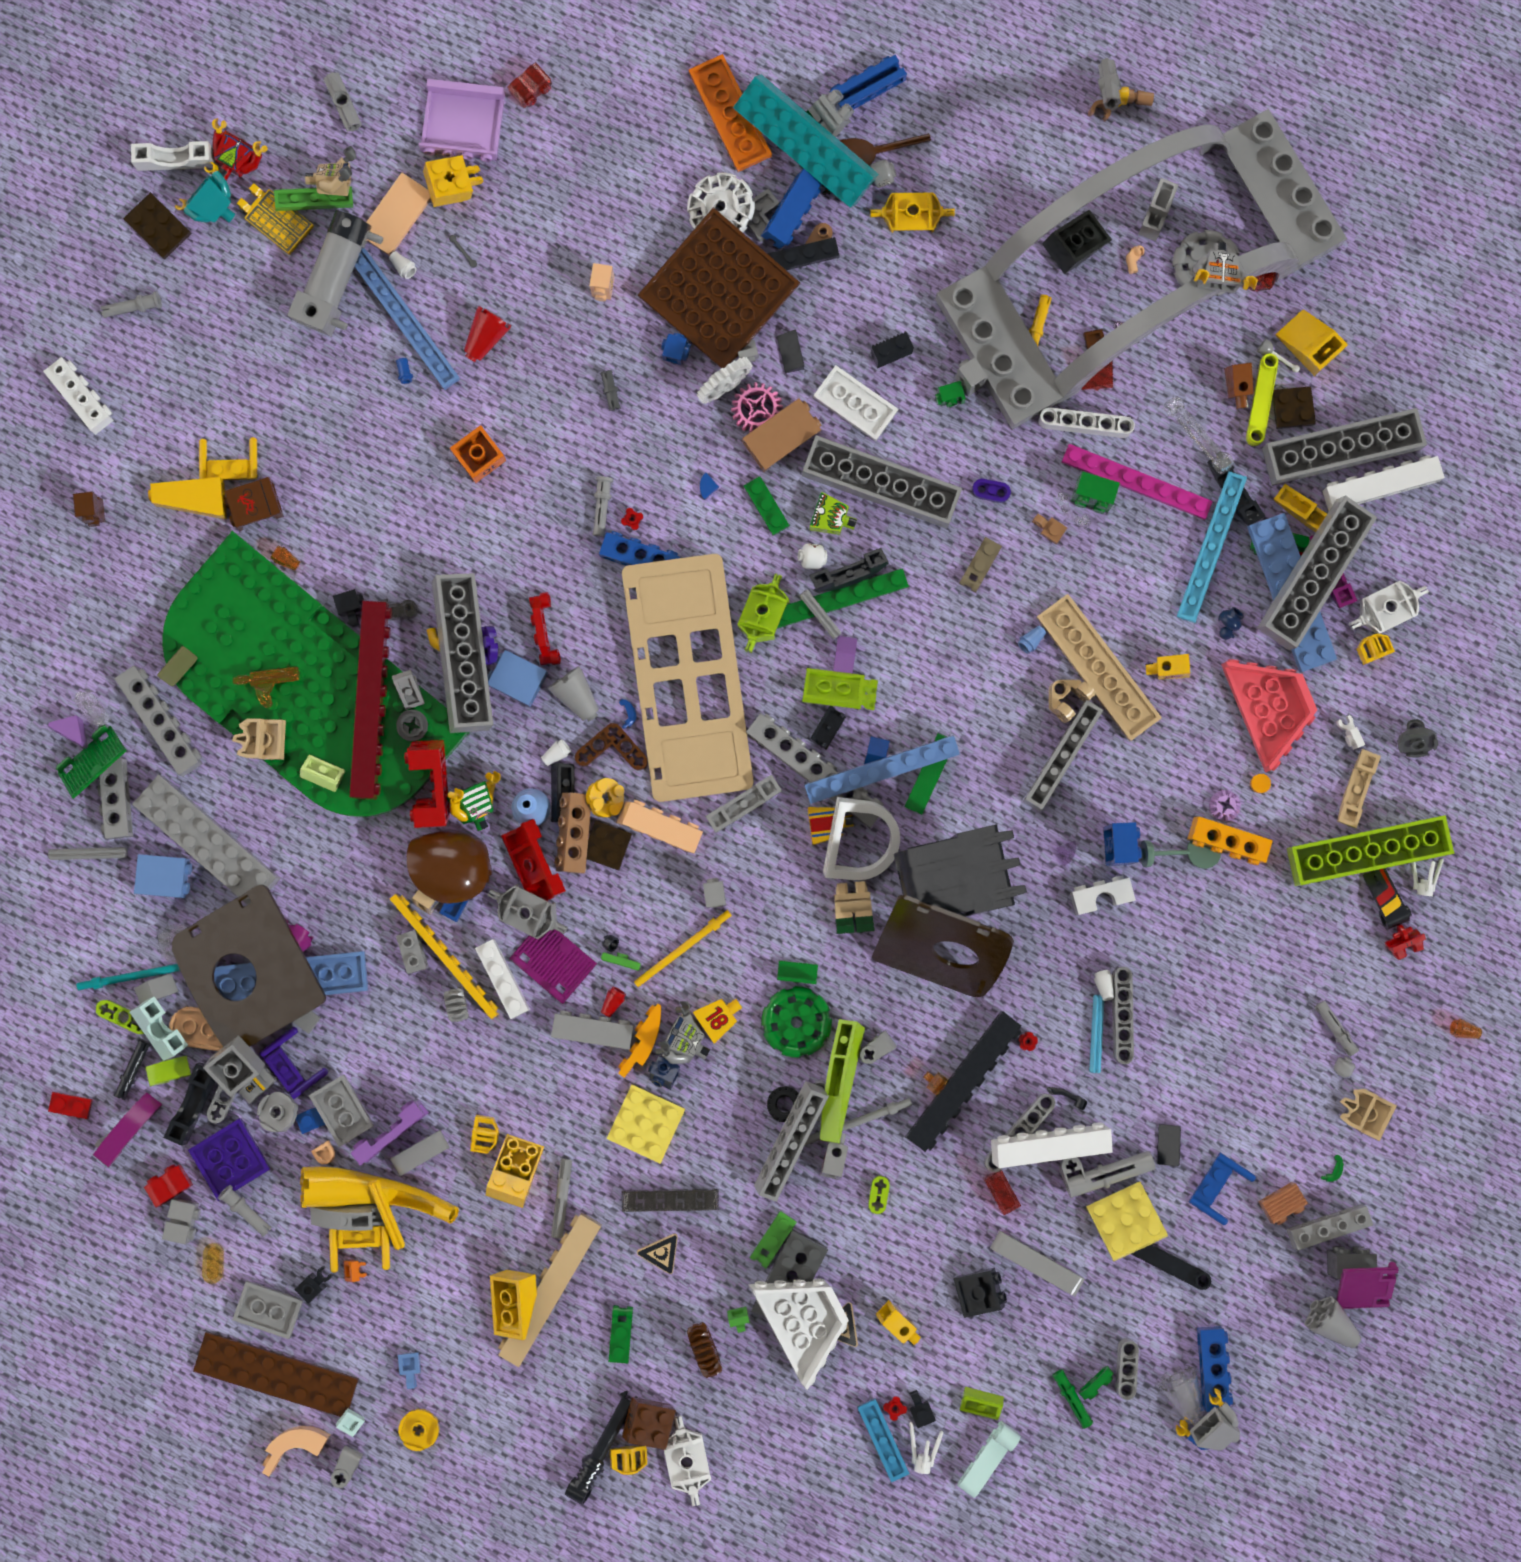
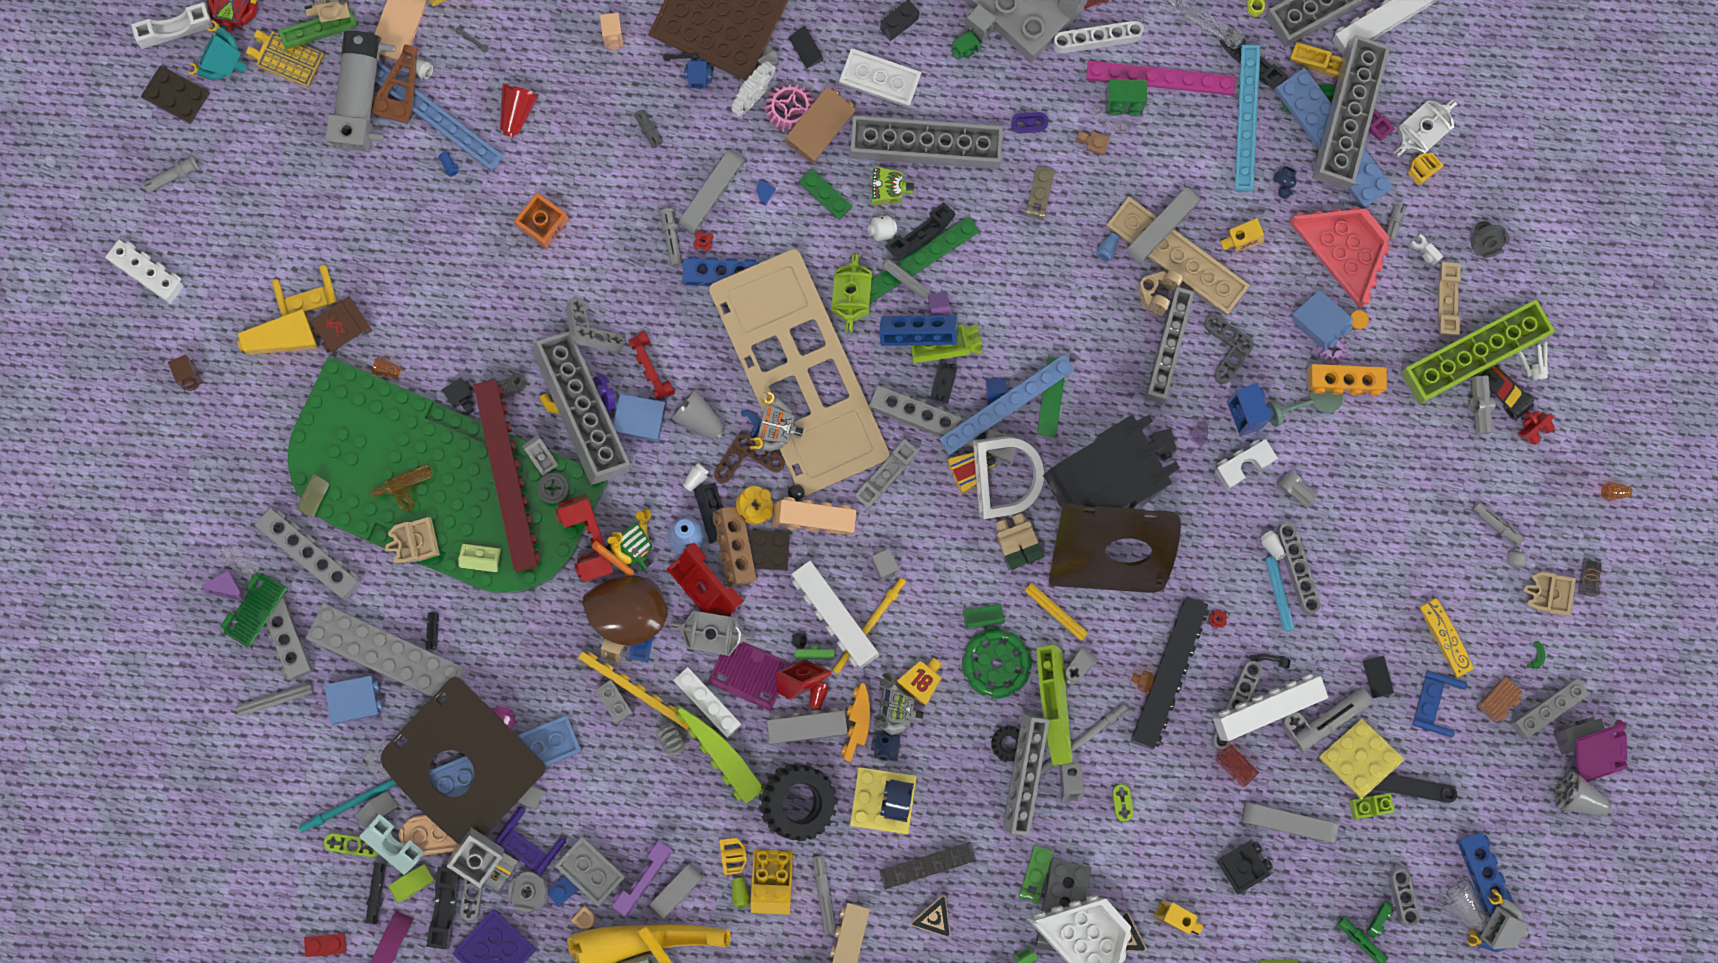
camera: 20 degrees left, 5 degrees down
(257, 830) = (432, 630): none -> black axle
(362, 299) = (395, 109): none -> dark orange plate
(448, 813) = (612, 558): none -> orange bar
(480, 1173) = (740, 894): none -> lime cone
(486, 581) = (583, 335): none -> light grey beam
(501, 1036) = (723, 757): none -> lime slope
(575, 1123) = (822, 806): none -> black tyre
(599, 981) = (799, 678): none -> red slope
(648, 725) = (776, 425): none -> torso
(649, 796) = (796, 491): none -> black hinge
(650, 323) = (667, 57): none -> black hinge
(652, 929) = (835, 615): none -> white brick
(655, 470) = (711, 191): none -> light grey beam
(656, 1130) = (898, 800): none -> dark blue brick
(817, 670) = (918, 330): none -> blue brick
(870, 988) = (1056, 612): none -> yellow axle
(1025, 850) = (1170, 448): none -> black brick
(1093, 633) = (1163, 225): none -> light grey beam
(1123, 1270) = (1372, 806): none -> lime slope
(1128, 779) = (1236, 349): none -> dark grey beam
(1144, 933) = (1293, 486): none -> light grey piece
(1223, 774) = (1322, 320): none -> medium blue brick
(1249, 1126) = (1446, 637): none -> yellow slope
(1328, 694) = (1395, 221): none -> light grey axle
(1357, 905) = (1482, 404): none -> light grey piece
(1411, 1108) = (1589, 578): none -> clear smoke leg

